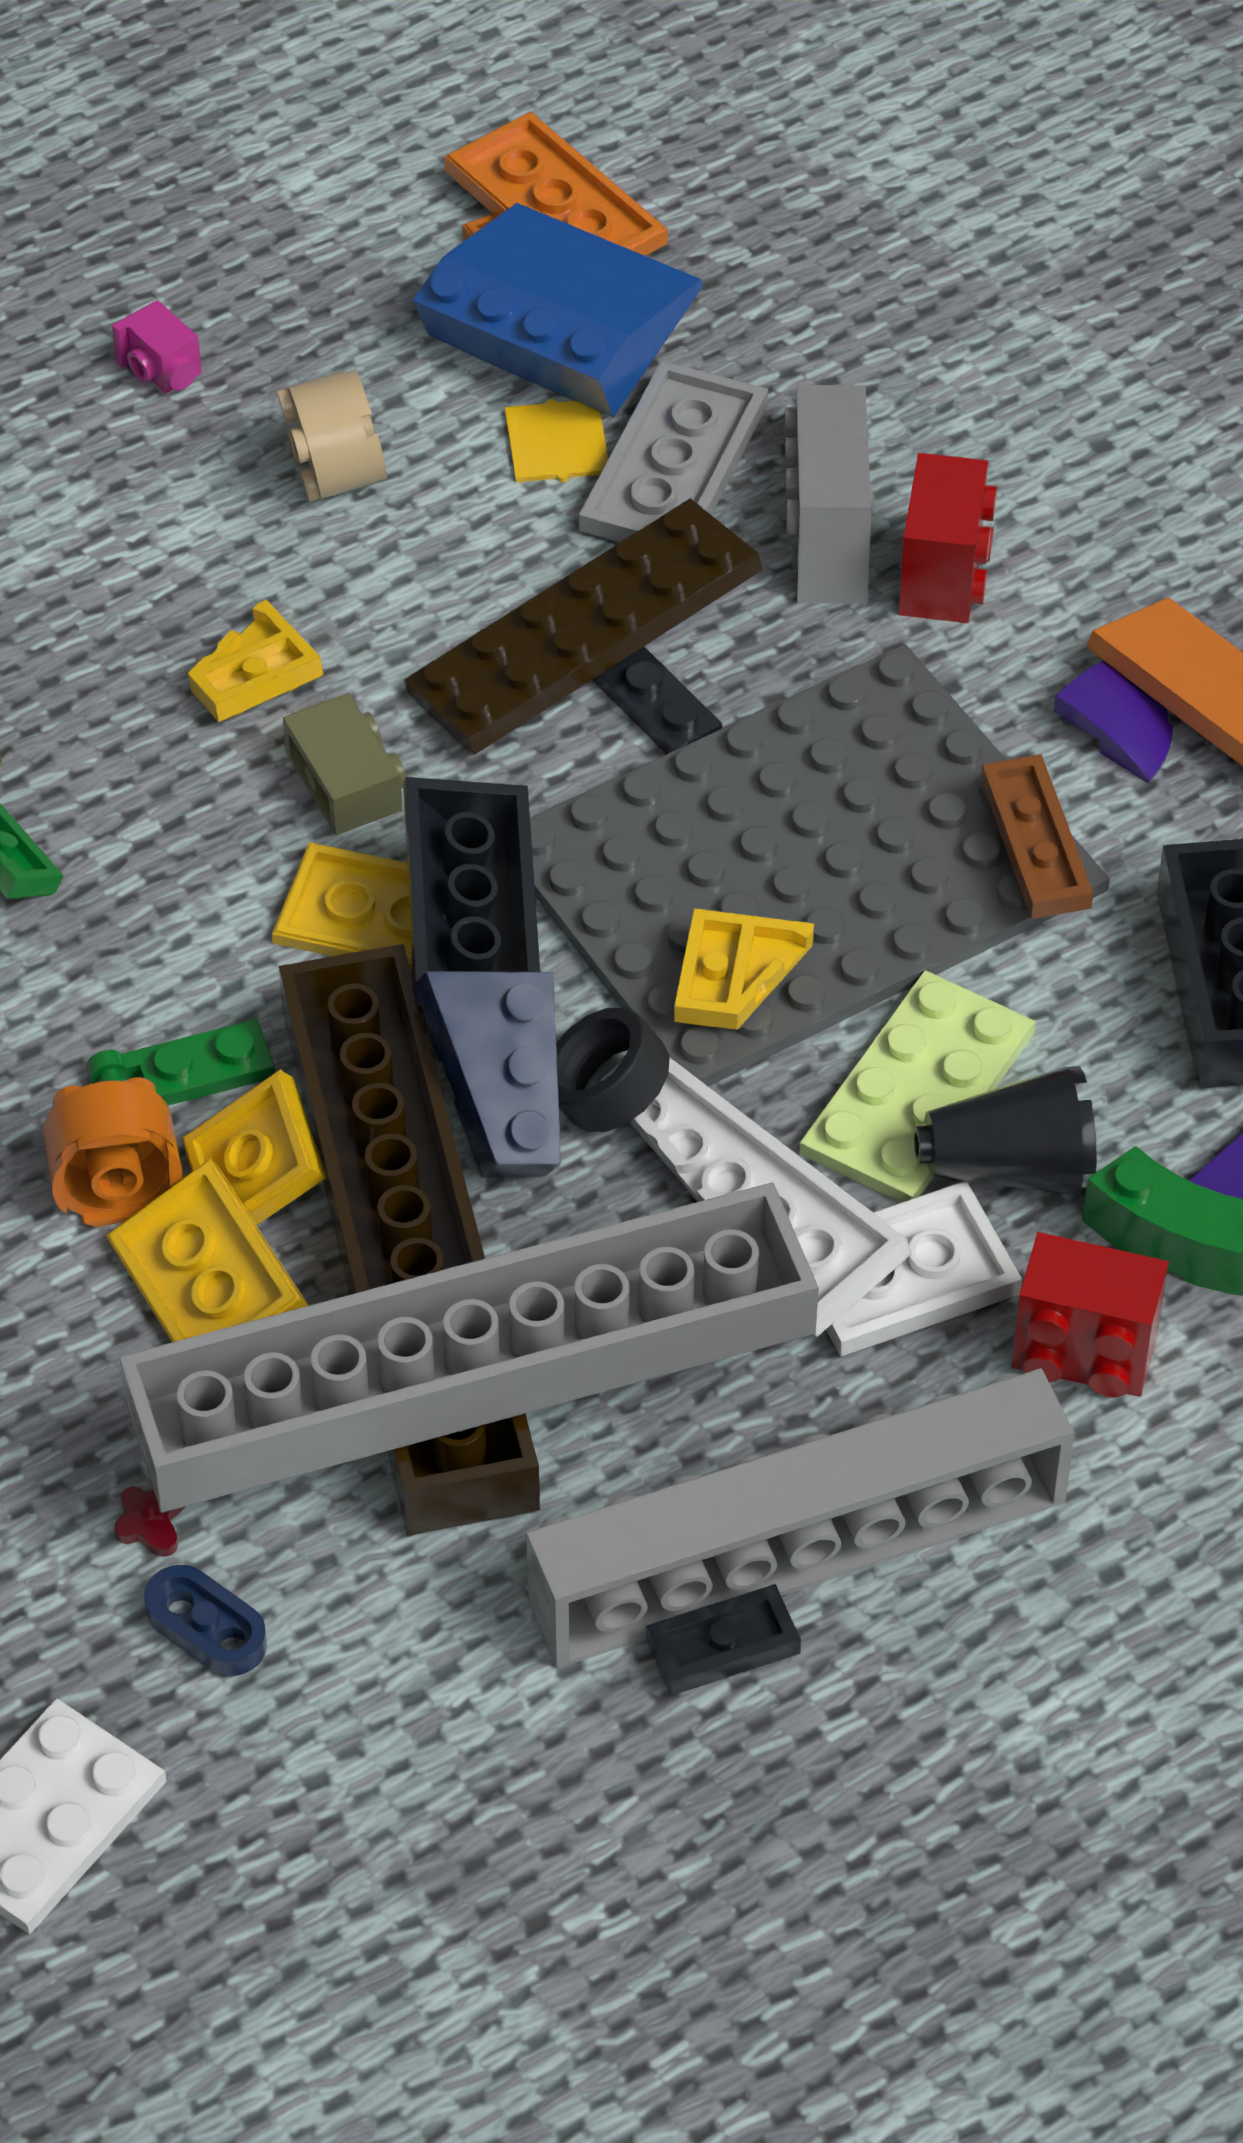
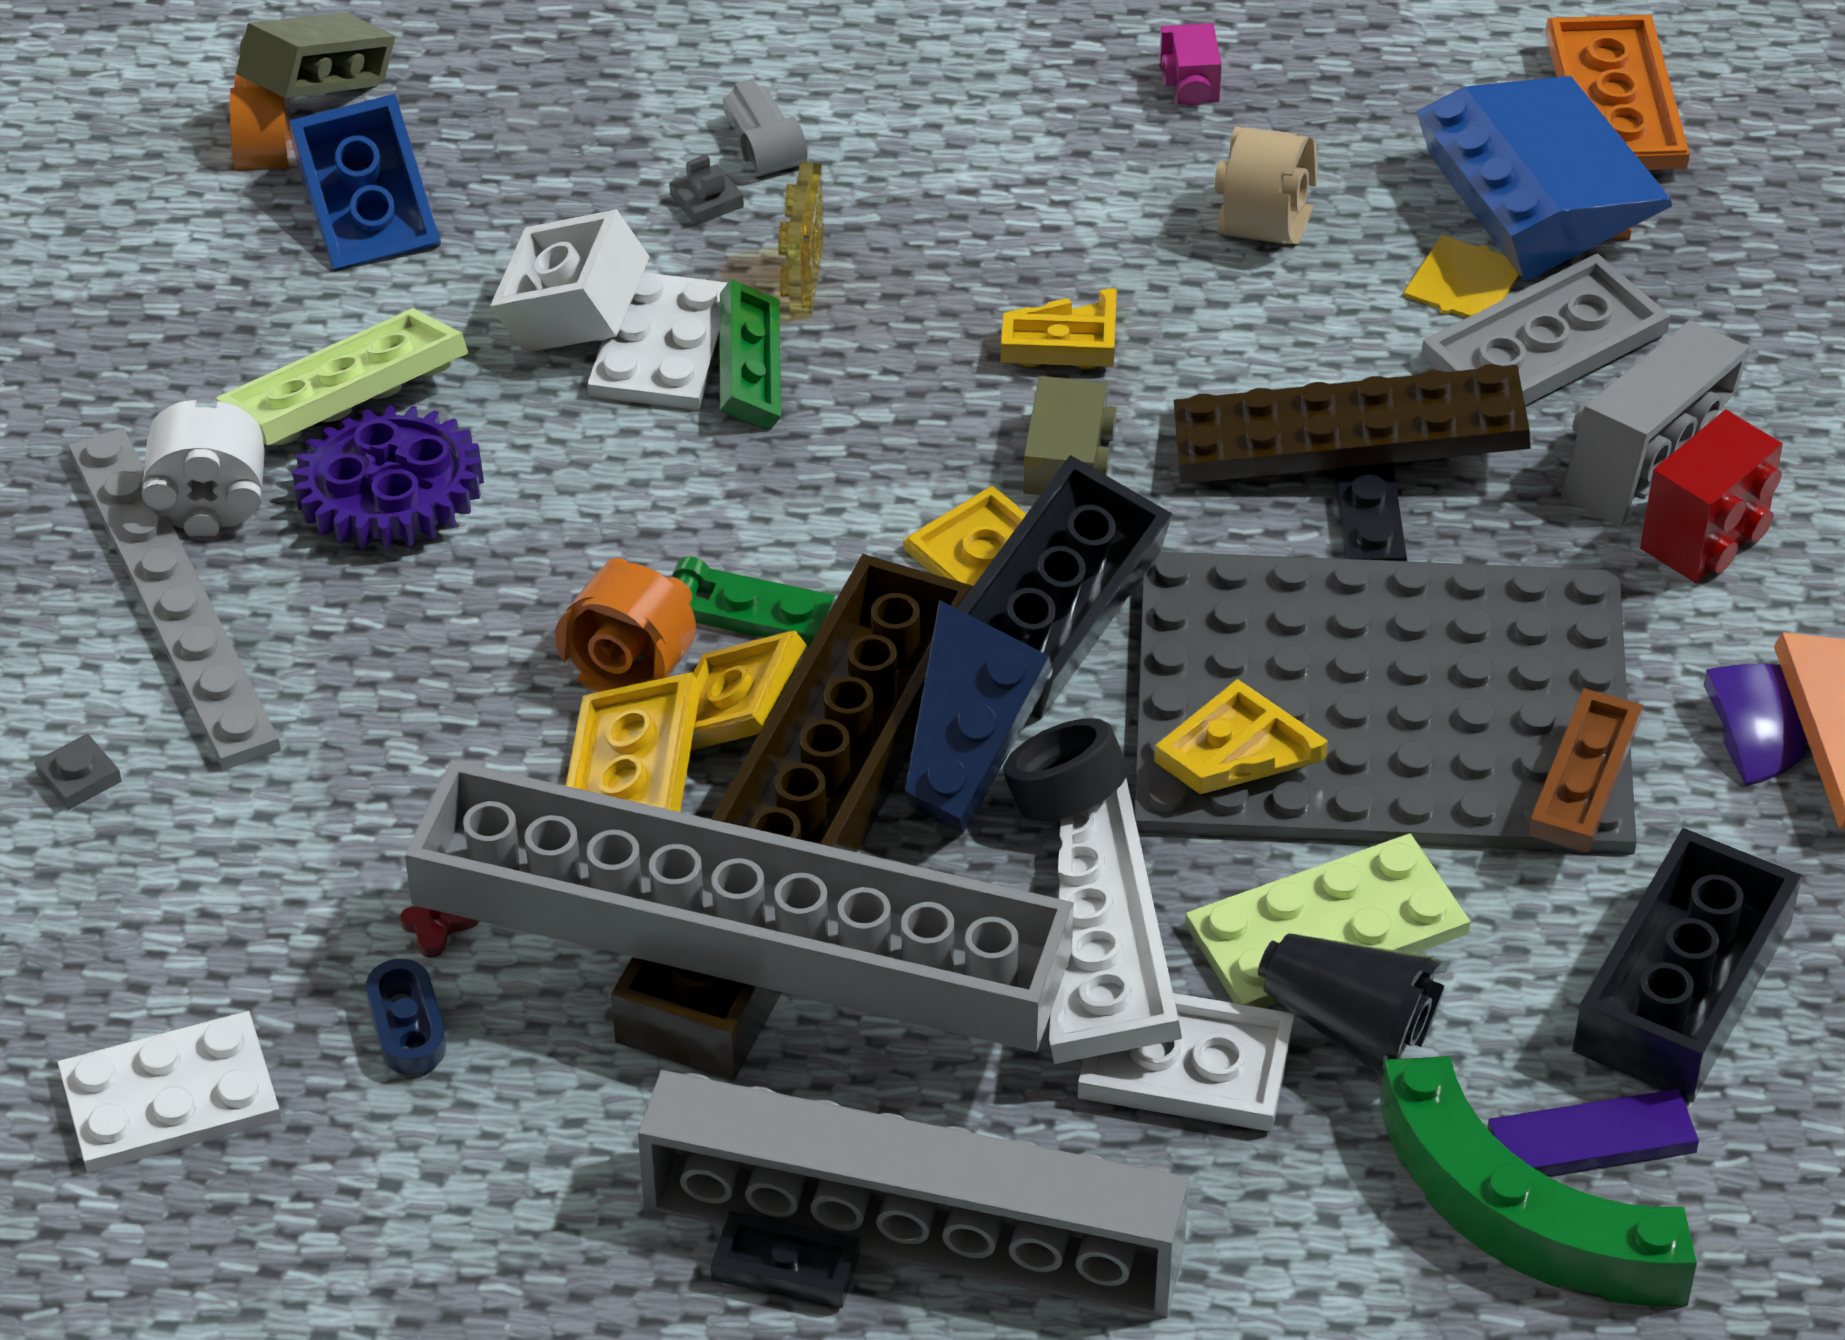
camera: 35 degrees right, 5 degrees down
(1089, 1314) = (1293, 1170): red brick -> none

